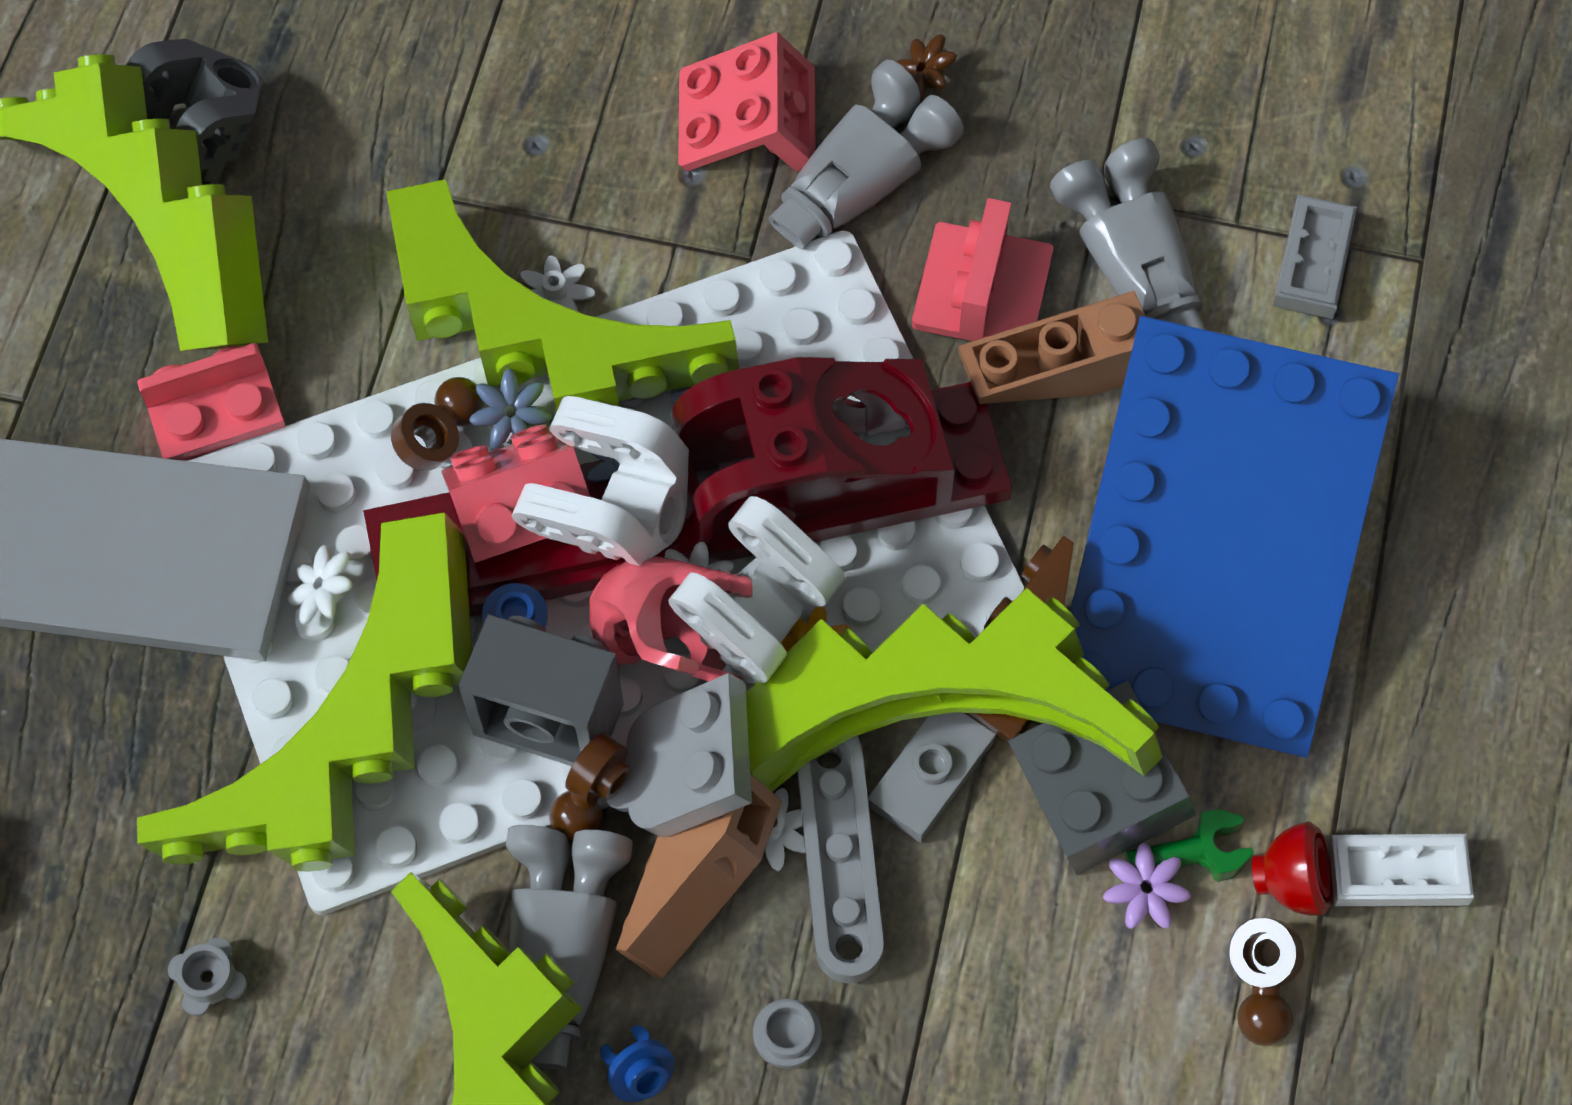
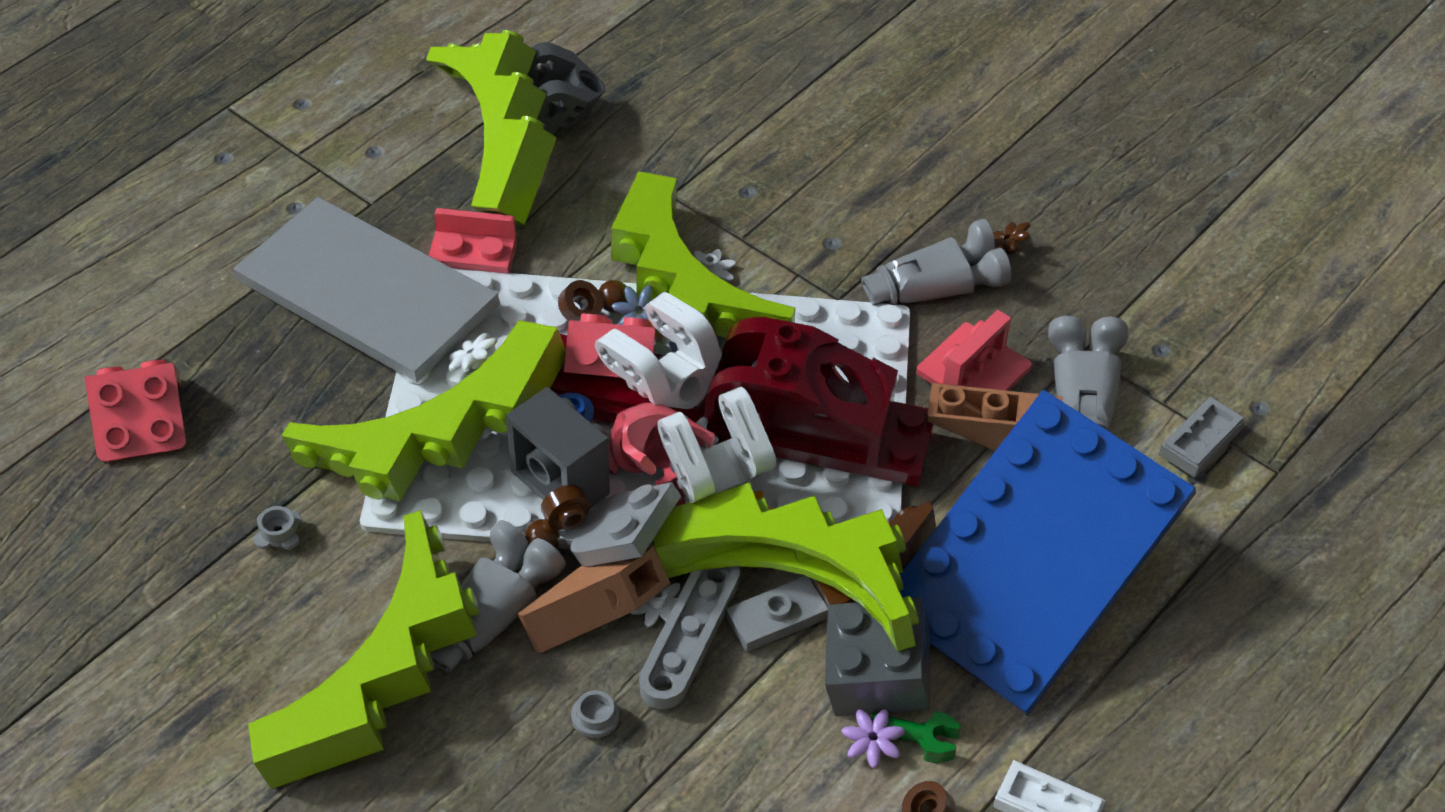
camera: 25 degrees right, 15 degrees down
(640, 1068) = (492, 690): blue plate -> none
(745, 101) = (895, 209): coral bracket -> none
(1296, 870) = (978, 770): red brick -> none

